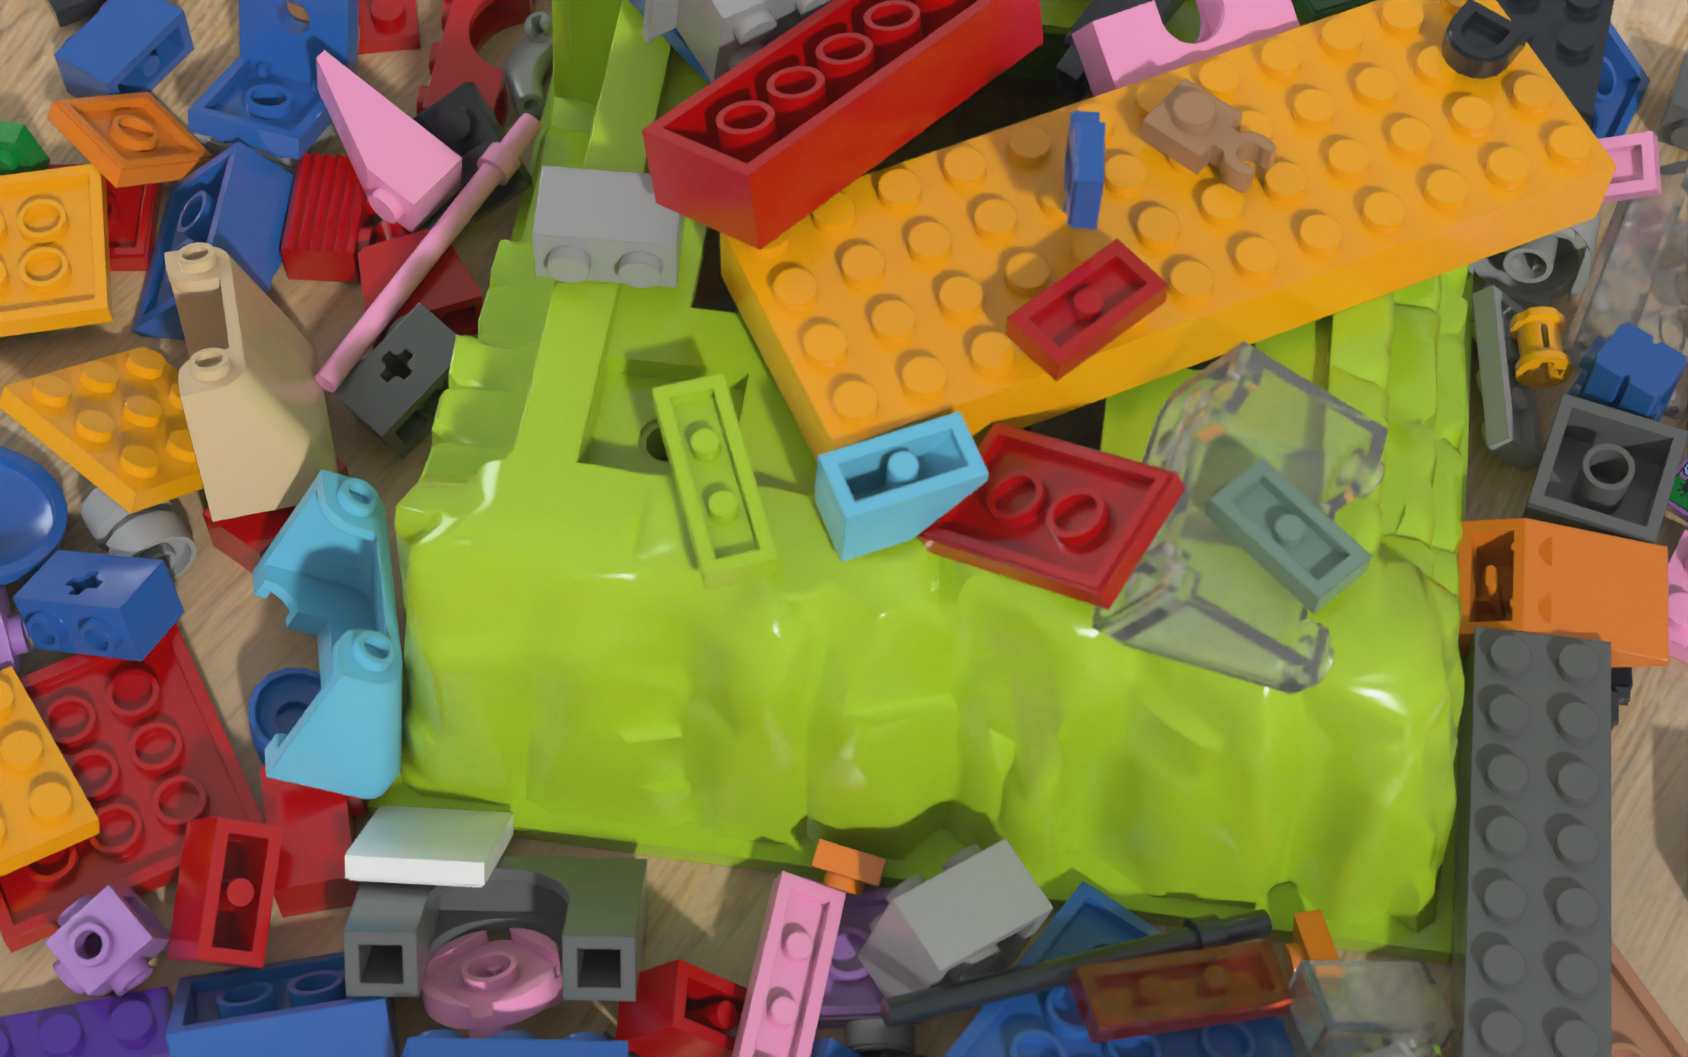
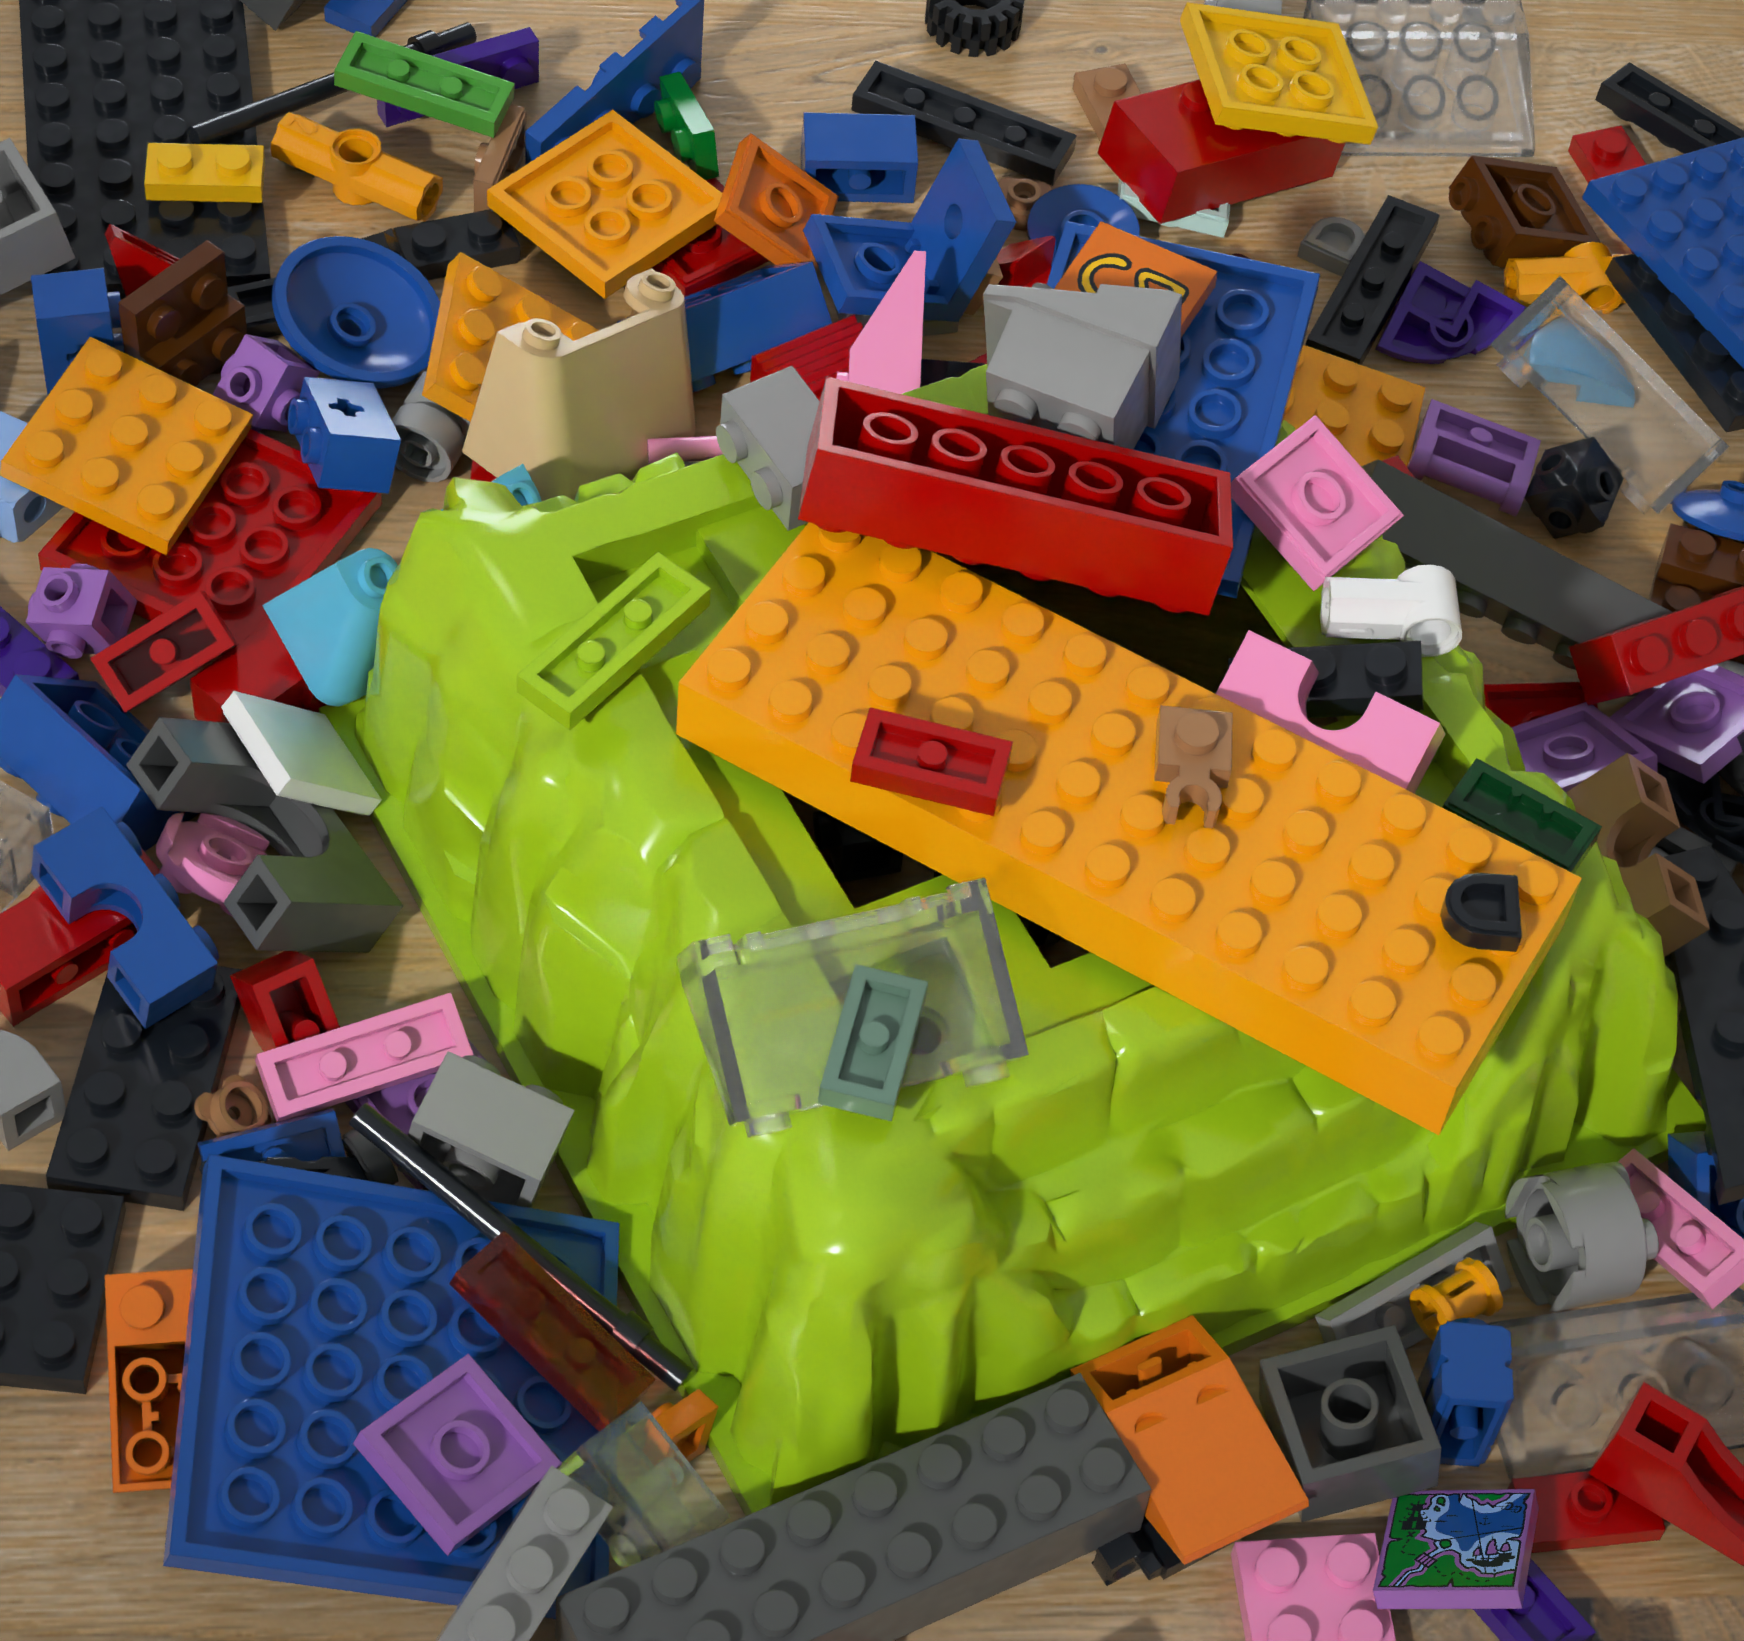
camera: 50 degrees right, 5 degrees down
(848, 868) = (497, 1039): orange plate -> none
(896, 484) = (685, 741): medium azure slope -> none
(1057, 515) = (750, 863): red tile -> none
(1084, 169) = (1046, 674): blue tile -> none

